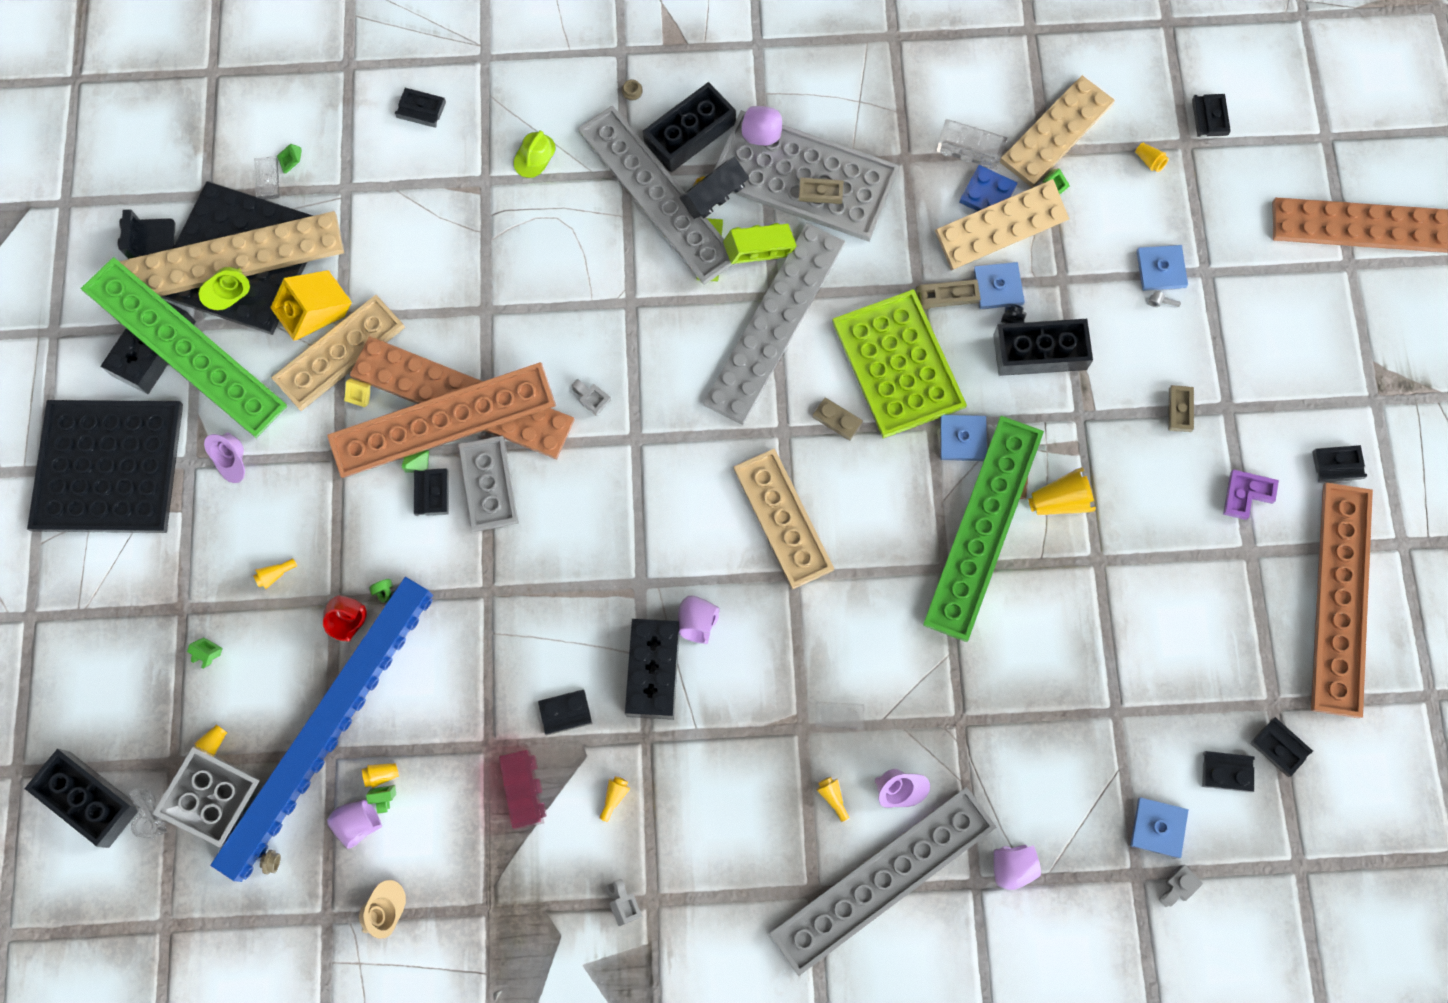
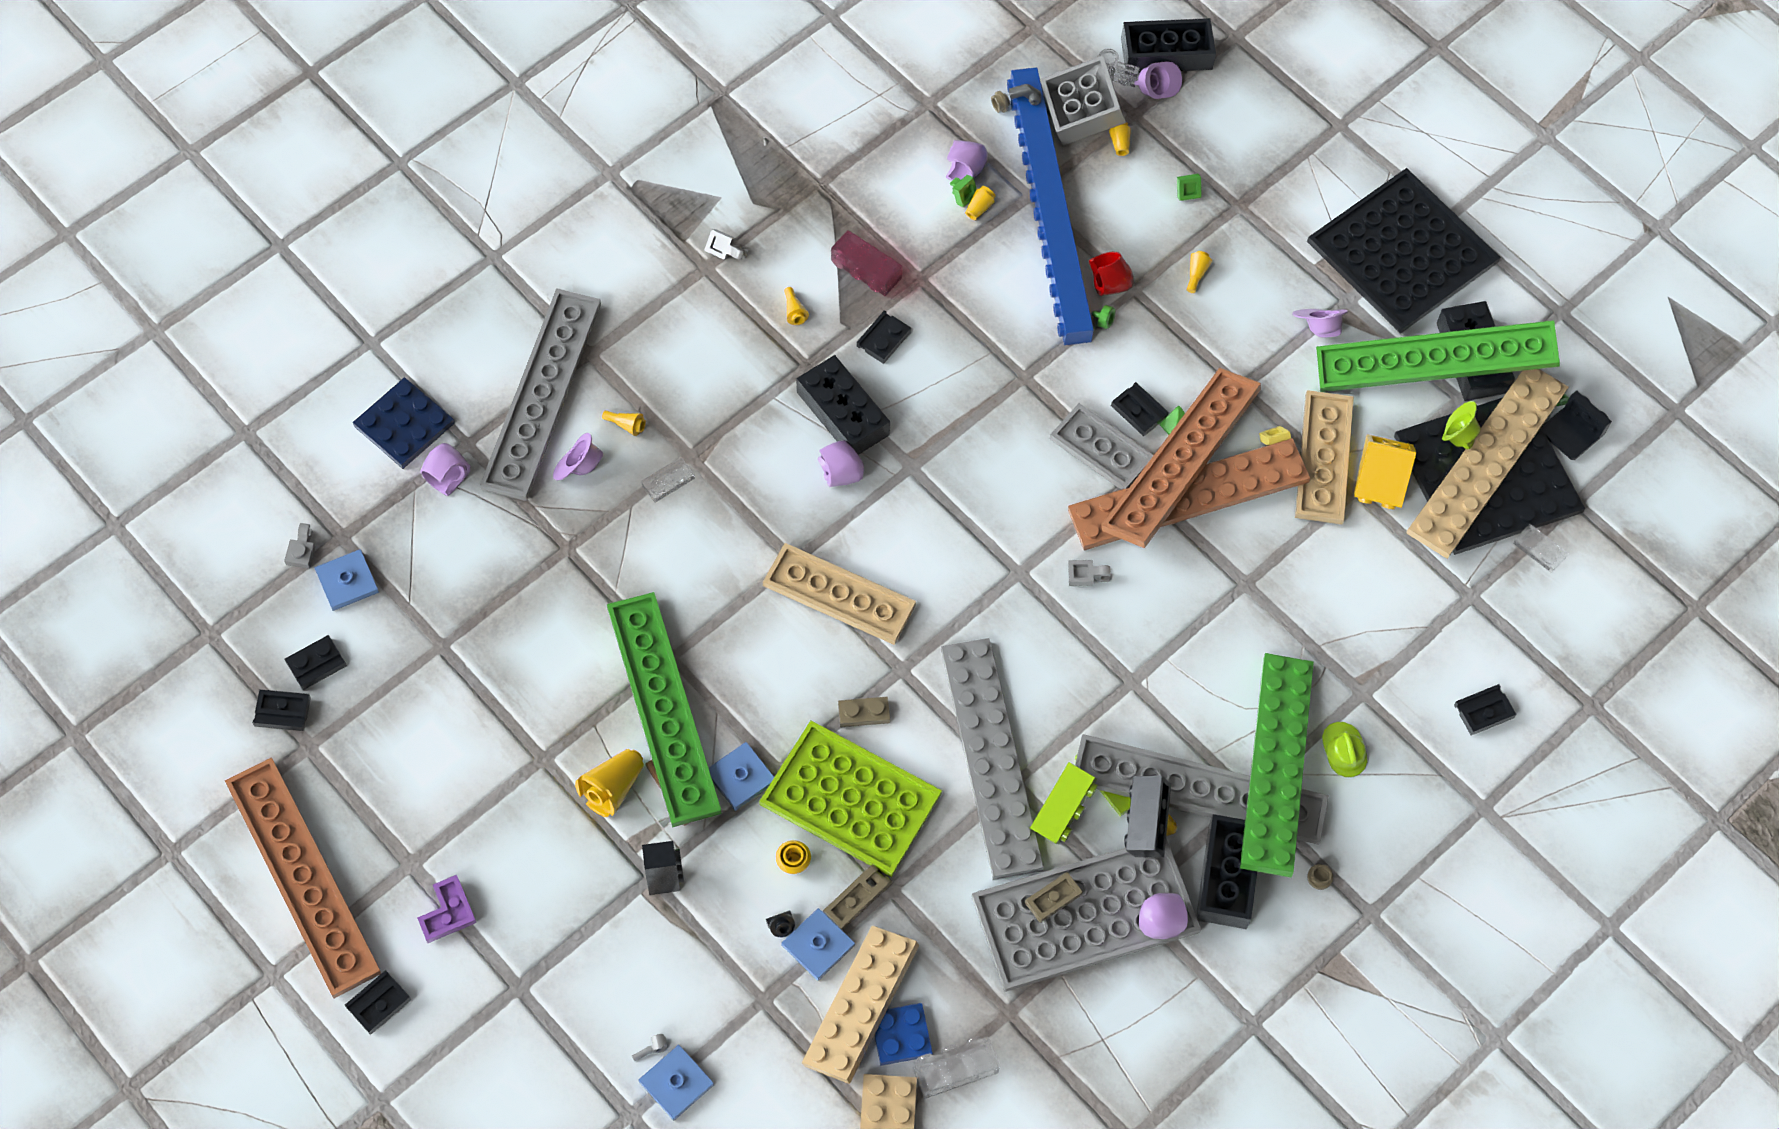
camera: 135 degrees right, 10 degrees down
(125, 771) = (1160, 80): none -> lavender piece
(243, 841) = (1027, 91): none -> dark grey arm
(289, 157) = (1543, 582): bright green slope -> none
(383, 909) = (891, 126): tan piece -> none
(593, 164) = (1277, 766): none -> bright green plate
(974, 347) = (793, 857): none -> yellow cone
(1018, 946) = (403, 423): none -> dark blue plate
(1059, 179) = (845, 1095): bright green slope -> none
(1063, 349) = (730, 886): black brick -> none
(1079, 394) = (662, 867): none -> black brick
(1181, 408) = (561, 946): dark tan plate -> none

